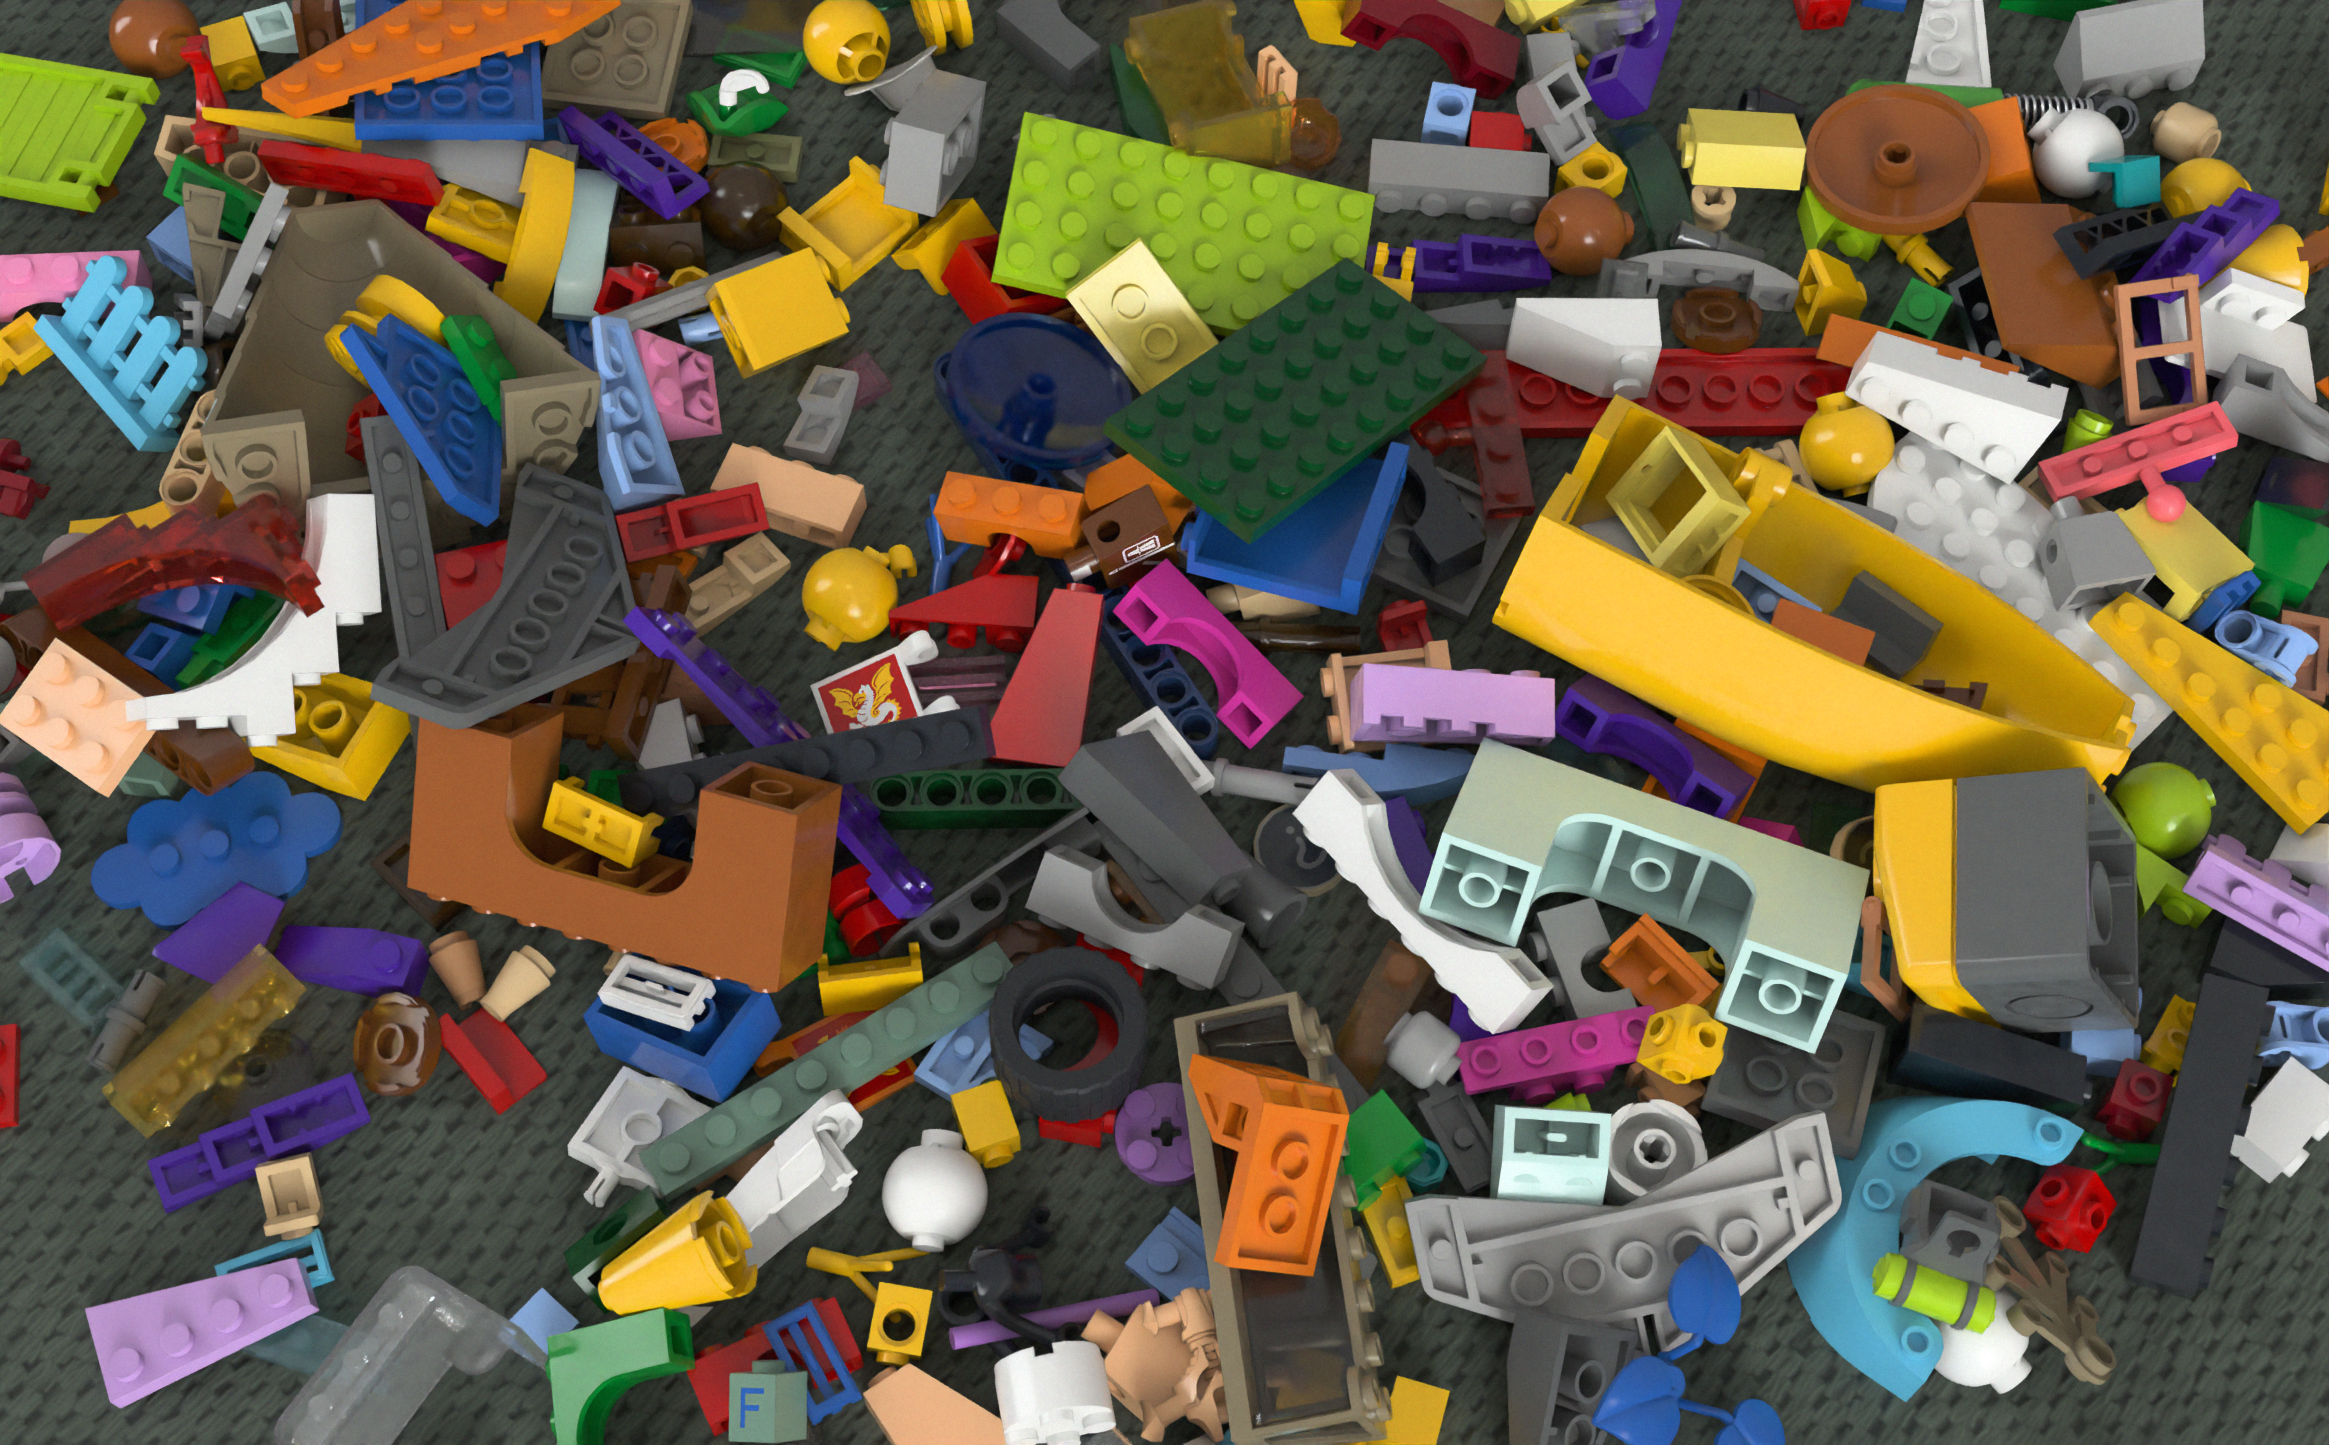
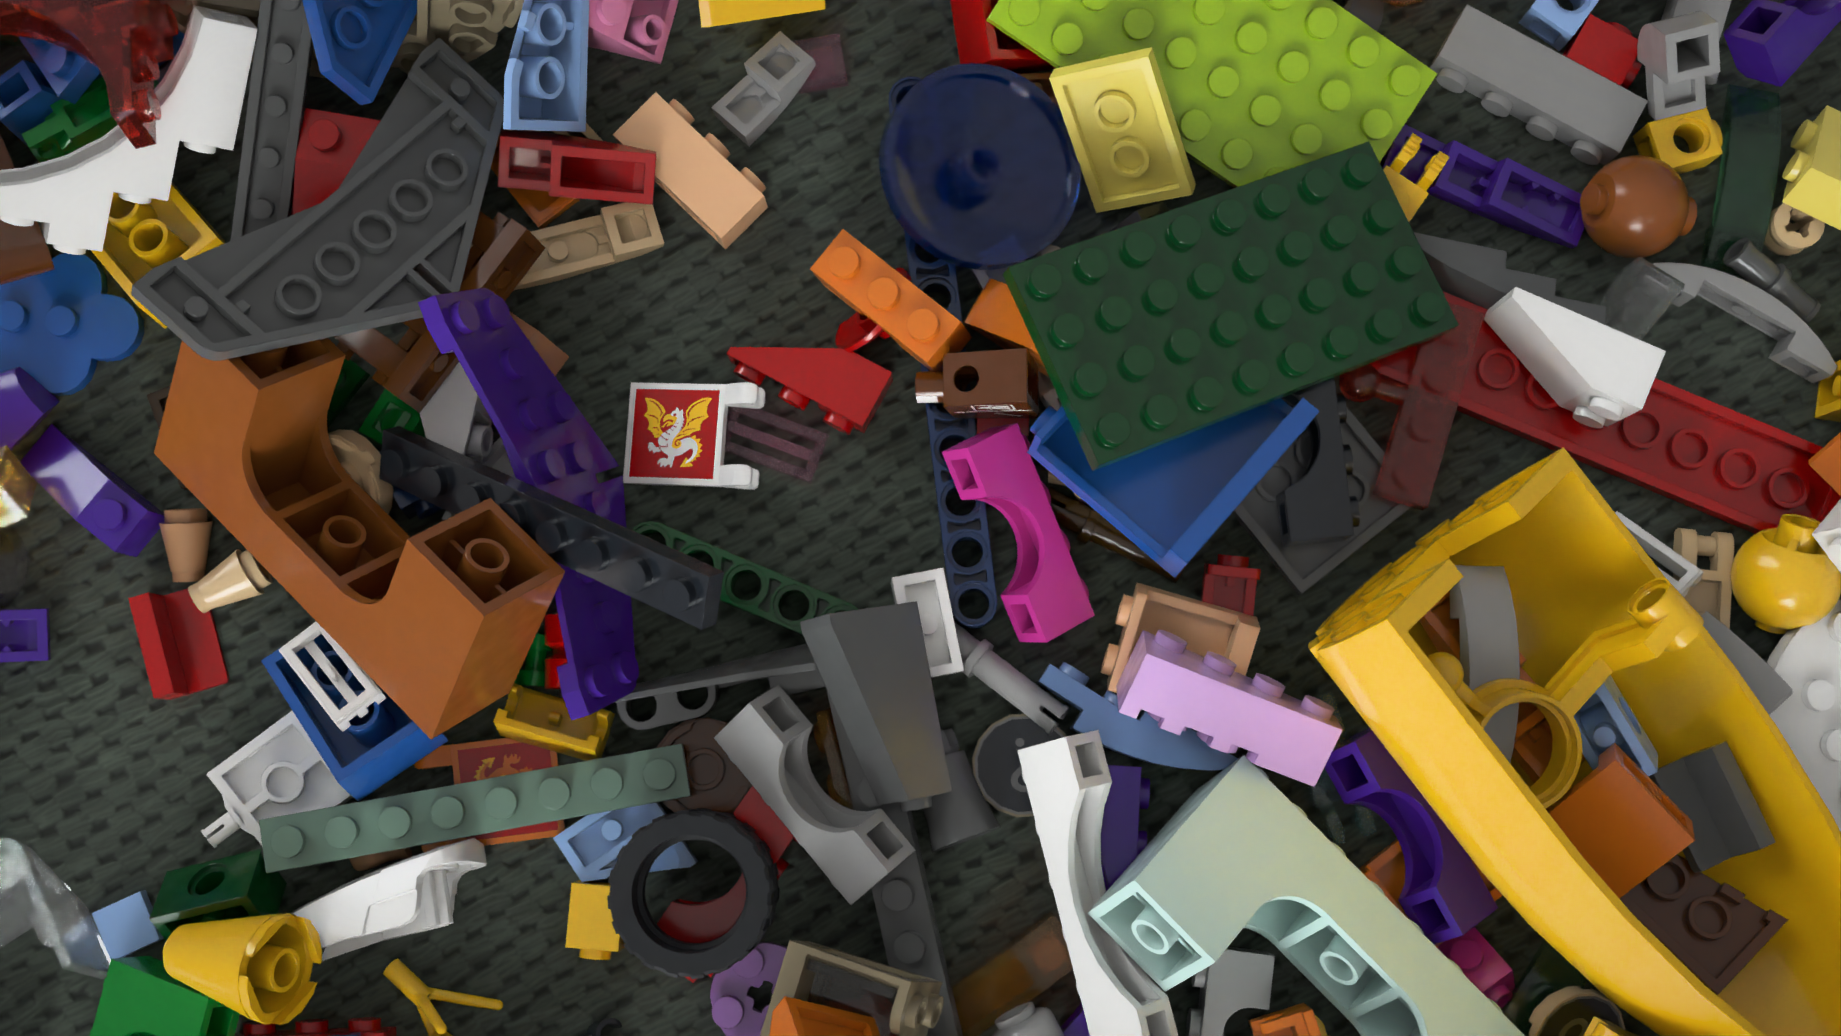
camera: 30 degrees right, 20 degrees up
(397, 1044) = (97, 598): reddish brown tile -> none
(600, 824) = (342, 481): yellow hinge -> none
(848, 596) = (701, 309): yellow brick -> none
(901, 558) = (772, 282): yellow hand -> none
(935, 1192) = (520, 966): white brick -> none
(942, 563) = (810, 308): blue plant -> none
(1050, 693) = (847, 506): red slope -> none
(1704, 526) = (1520, 602): light yellow window -> none
(1716, 320) = (1727, 366): reddish brown tile -> none

